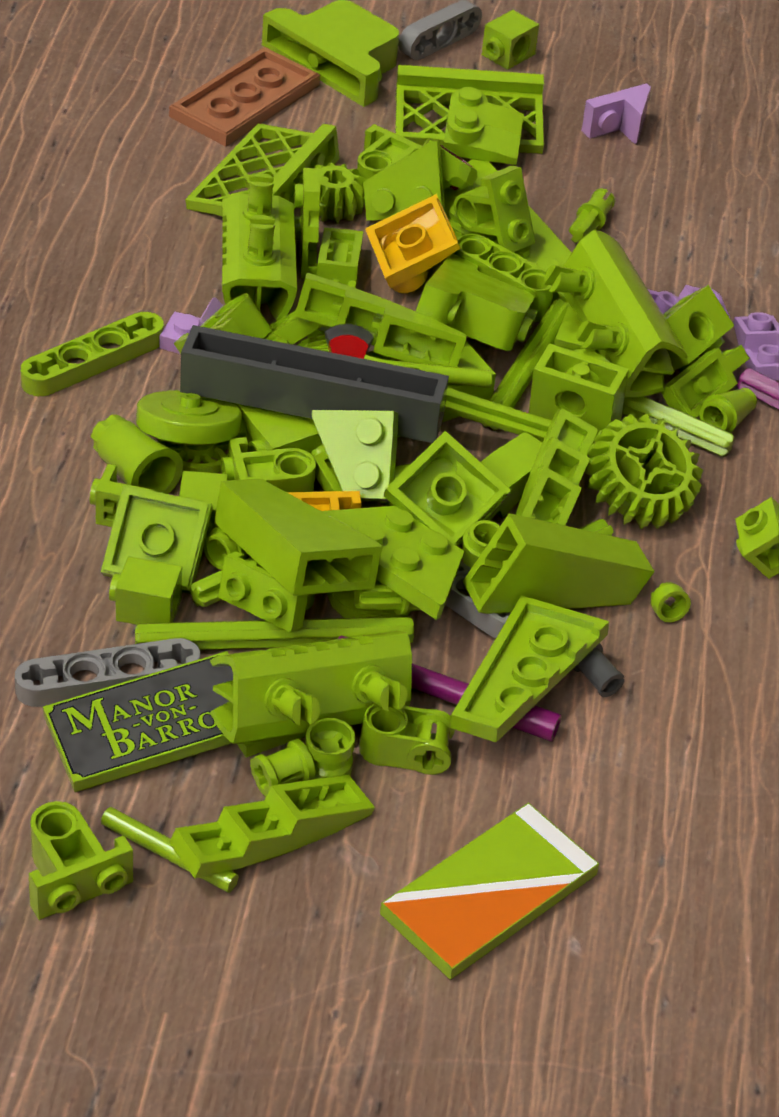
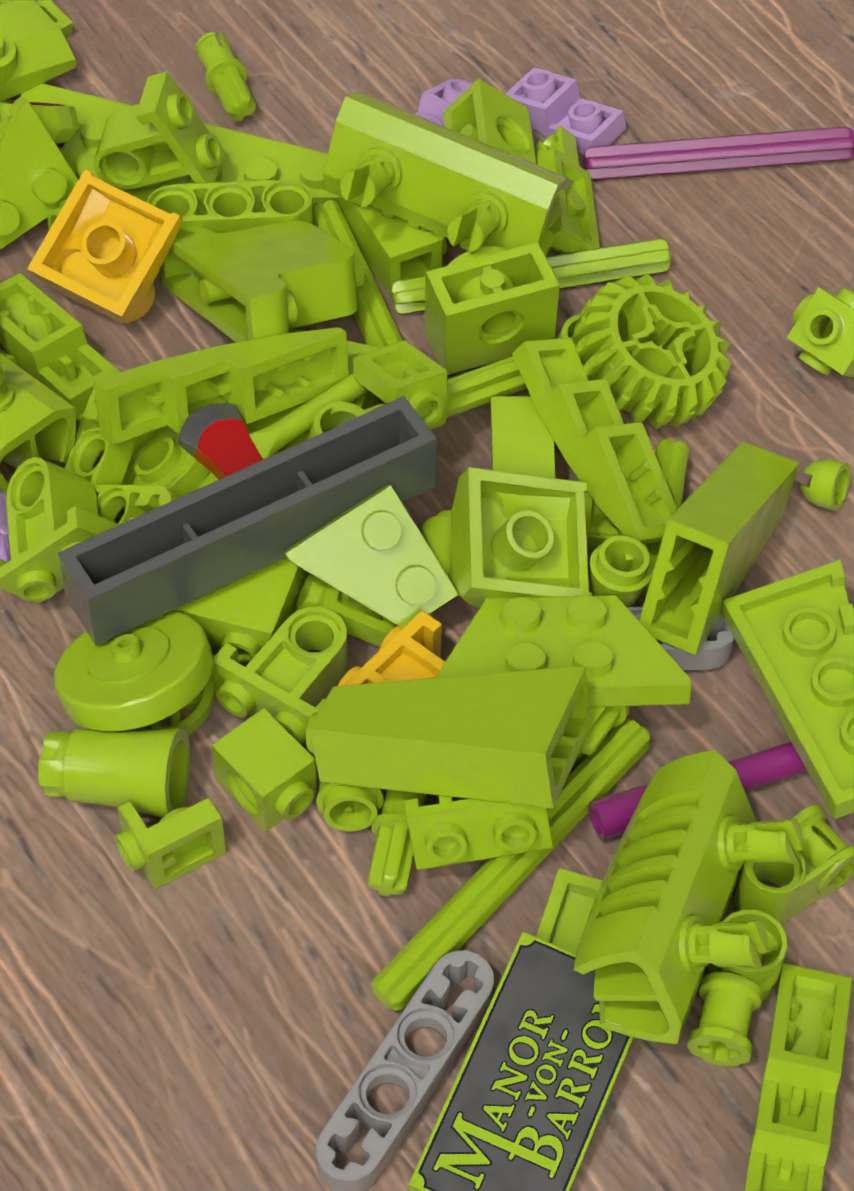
camera: 40 degrees left, 10 degrees up
(146, 591) = (339, 932): lime brick -> none
(159, 530) = (276, 856): lime tile -> none
(470, 388) = (405, 372): none -> lime bracket
(728, 408) = (622, 212): lime cone -> none

